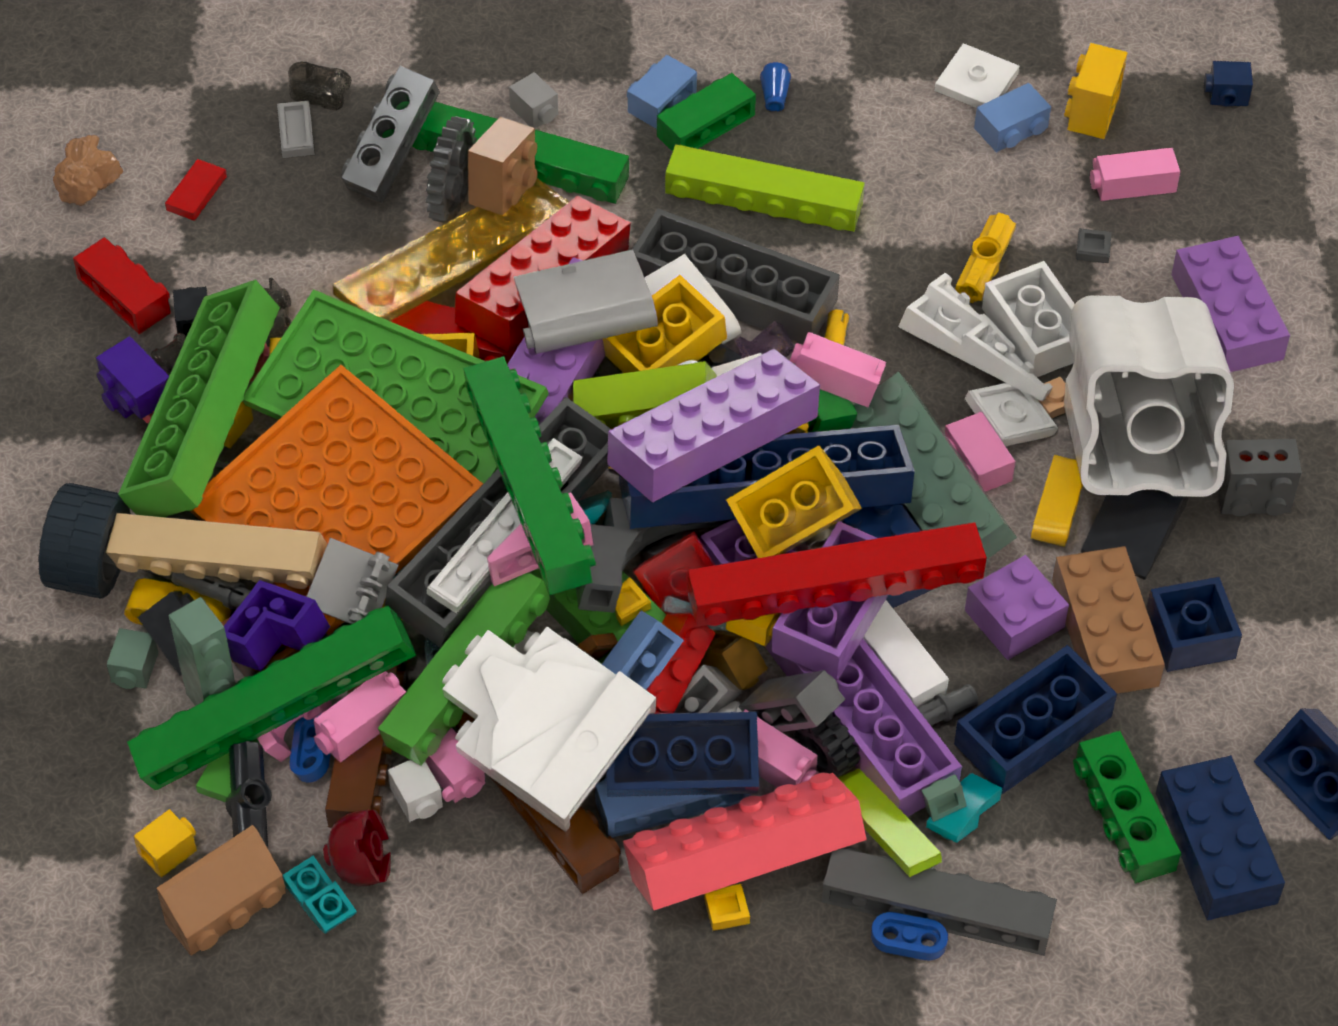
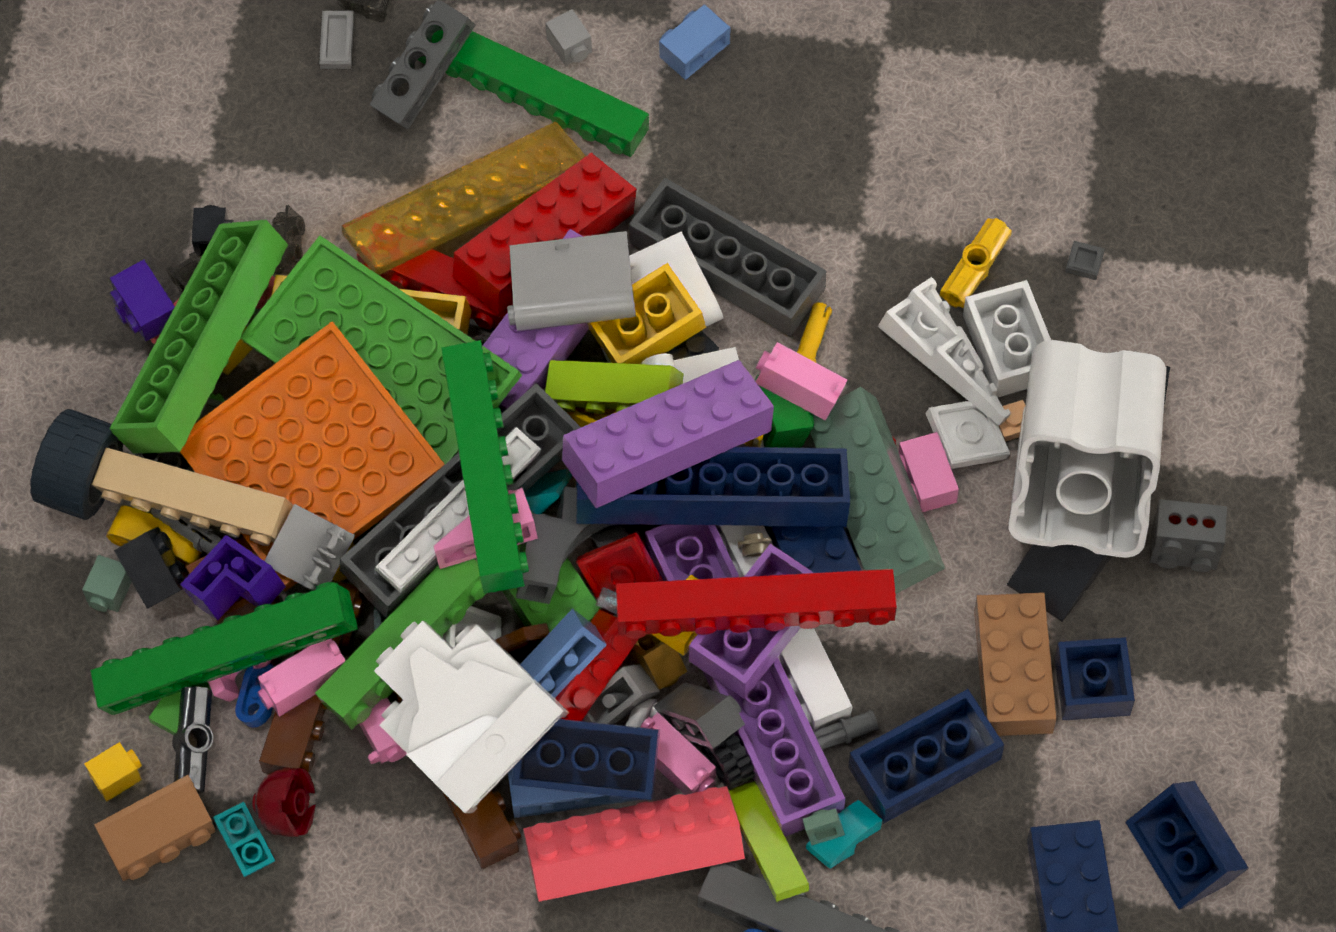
camera: 10 degrees right, 10 degrees up
(85, 170) = (128, 67): medium nougat hair -> none
(122, 285) = (149, 192): red brick -> none
(195, 189) = (232, 95): red tile -> none
(201, 651) = (165, 599): sand green brick -> none
(415, 790) = (345, 750): white brick -> none
(449, 170) = (473, 113): dark grey gear -> none
(501, 166) = (521, 115): medium nougat brick -> none
(630, 602) = (567, 593): yellow tile -> none
(706, 113) = (732, 73): green brick -> none
(727, 907) = (609, 904): yellow plate -> none
(764, 188) = (775, 161): lime brick -> none
(771, 338) = (746, 335): clear purple bracket -> none
(775, 84) = (807, 45): blue cone -> none
(793, 504) = (730, 523): yellow slope -> none
(976, 76) = (1007, 60): white plate -> none
(1012, 117) = (1032, 111): medium blue brick -> none
(1016, 607) = (932, 638): medium lavender brick -> none
(1058, 502) = (991, 536): yellow beam -> none
(1095, 90) = (1118, 94): yellow brick -> none
(1112, 757) = (990, 801): green brick -> none
(1135, 174) = (1140, 188): bright pink brick -> none
(1229, 83) = (1254, 98): dark blue brick -> none
(1237, 301) = (1202, 344): medium lavender brick -> none

